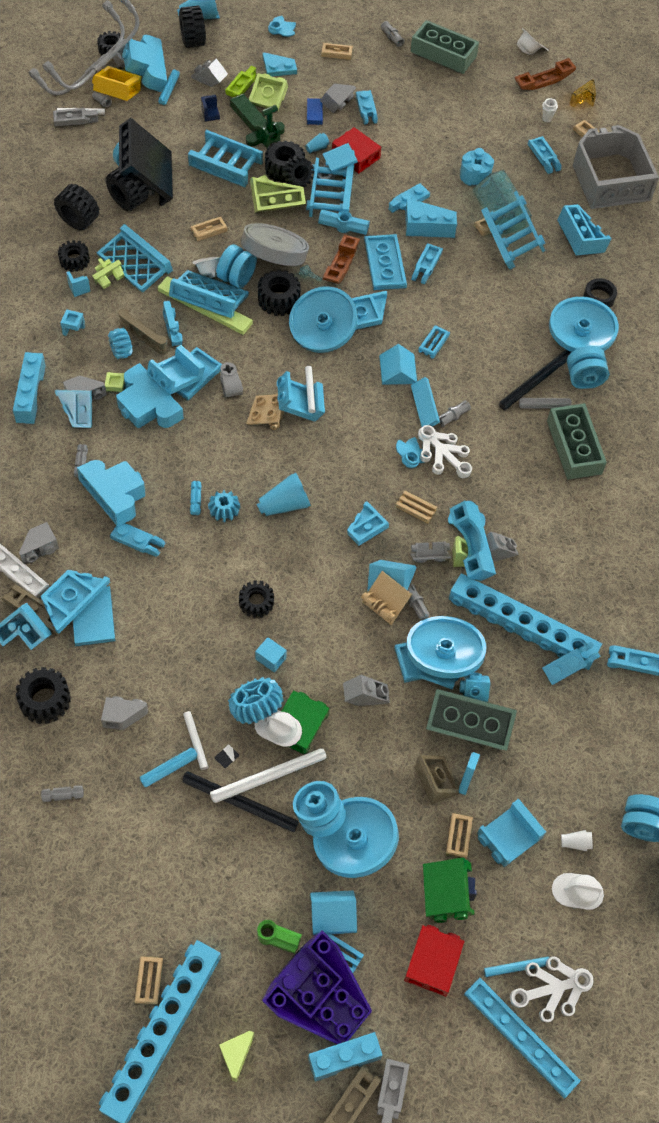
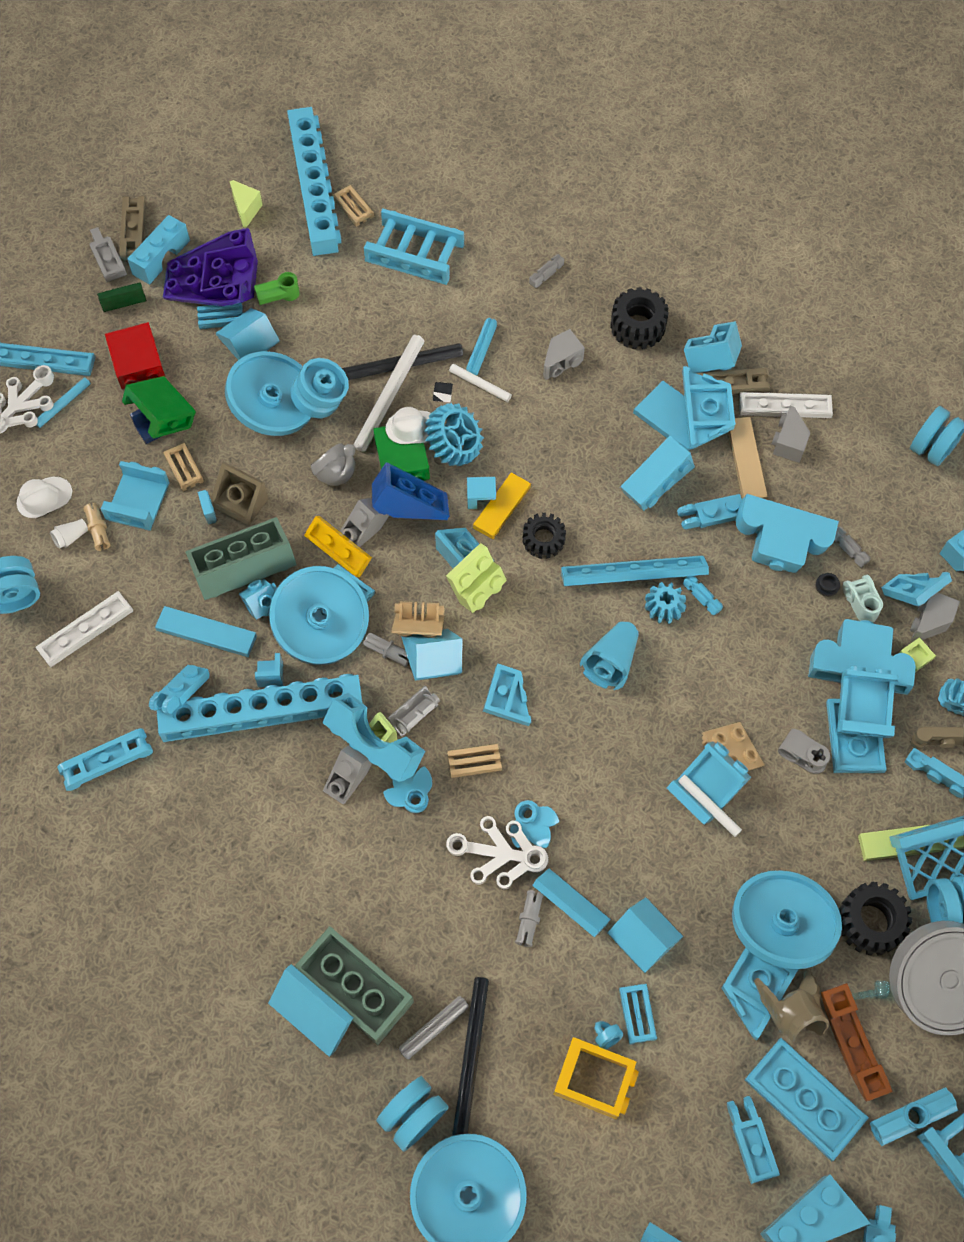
camera: 145 degrees right, 5 degrees up
(82, 551) = (747, 459): none -> tan tile
(107, 429) = (862, 595): none -> light aqua piece
(118, 450) = (827, 584): none -> black plate
(148, 576) = (658, 473): none -> medium azure wedge
(161, 892) = (409, 263): none -> medium azure fence
(223, 537) = (634, 570): none -> medium azure tile
(248, 644) = (501, 508): none -> yellow tile
(316, 625) = (455, 544): none -> medium azure slope
(324, 594) = (476, 578): none -> yellowish green plate
(325, 678) = (407, 496): none -> blue slope
(353, 748) = (335, 465): none -> light grey piece
(359, 281) = (797, 1009): none -> dark tan helmet
(396, 690) = (338, 546): none -> yellow tile
(407, 1031) = (121, 297): none -> dark green tile
(458, 340) = (609, 1036): none -> medium azure tile
(484, 343) = (569, 1064): none -> yellow window
(502, 639) = (270, 672): none -> medium azure panel
(525, 700) = (206, 631): none -> medium azure tile
(553, 832) = (96, 526): none -> tan pin
(606, 761) = (84, 629): none -> white tile
(608, 444) = (310, 1010): none -> medium azure tile

